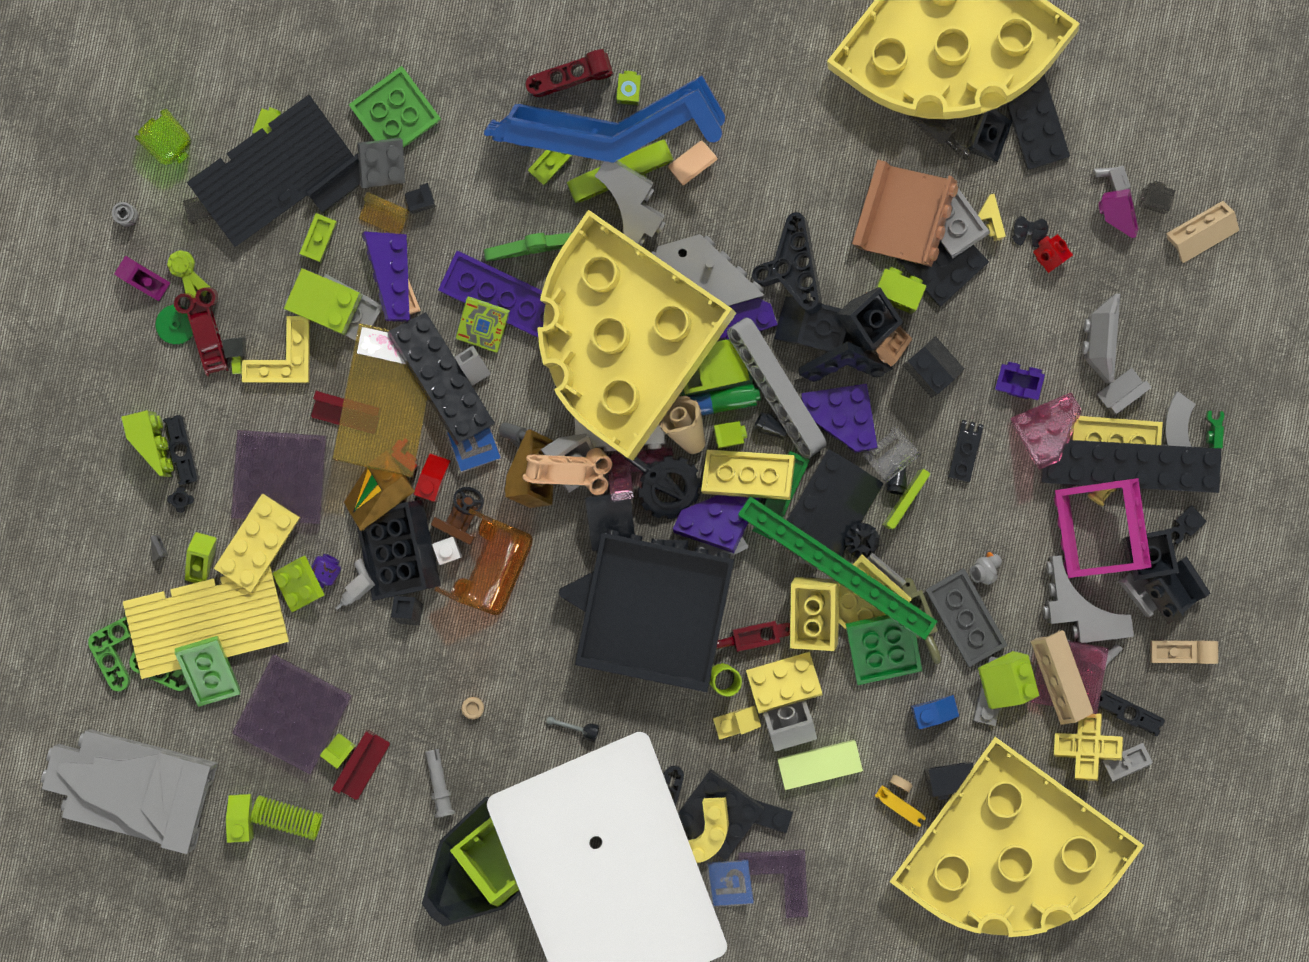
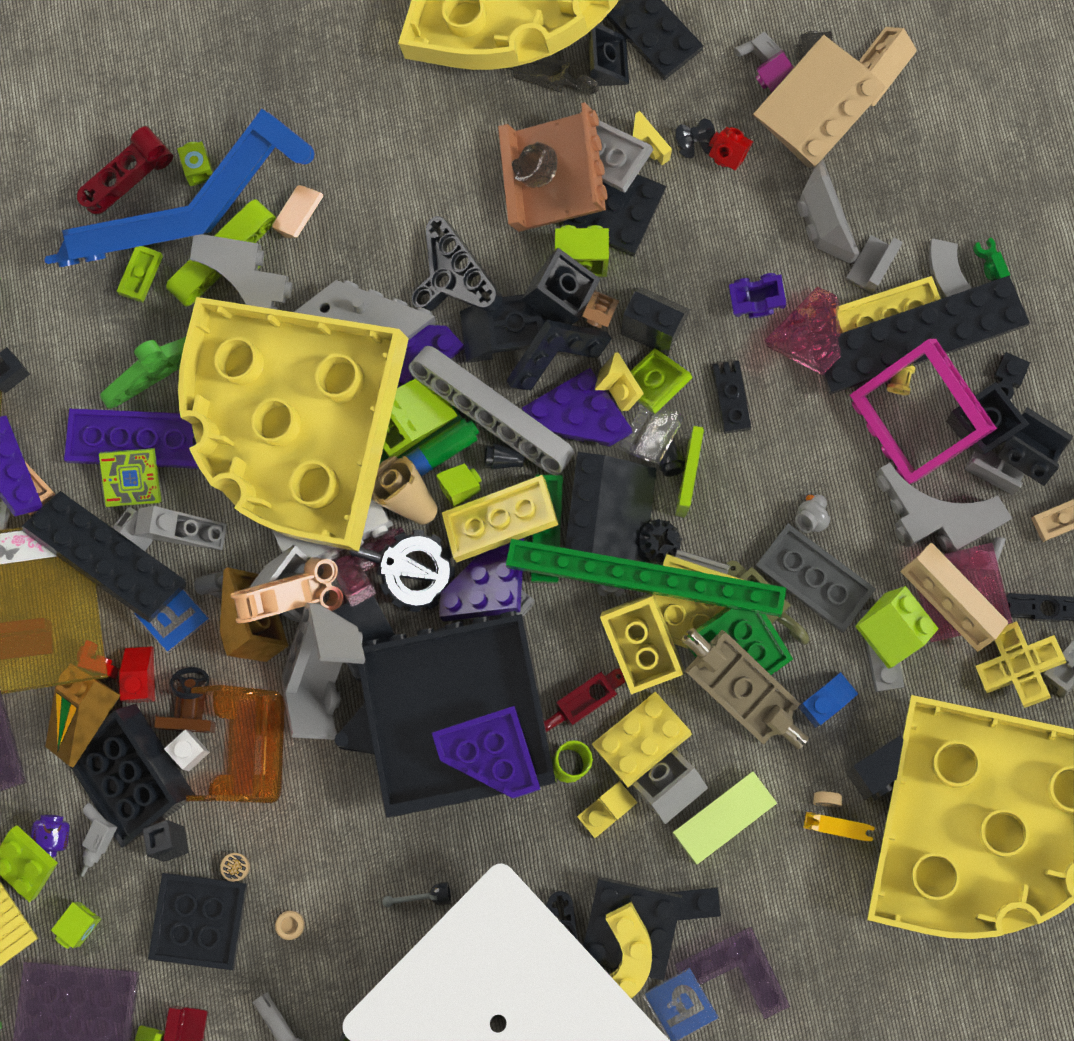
camera: 20 degrees left, 10 degrees down
(319, 643) = (75, 925): none -> lime brick
(408, 677) = (198, 921): none -> black plate
(449, 649) = (235, 867): none -> tan tile
(505, 380) = (179, 528): none -> light grey slope
(559, 531) = (312, 667): none -> light grey windscreen
(670, 651) = (490, 752): none -> dark purple plate
(875, 678) = (743, 688): none -> dark tan plate
(884, 404) = (620, 382): none -> light yellow slope
(893, 205) = (536, 165): none -> clear smoke hair
(911, 415) = (659, 379): none -> lime tile
(1138, 246) = (819, 101): none -> tan slope

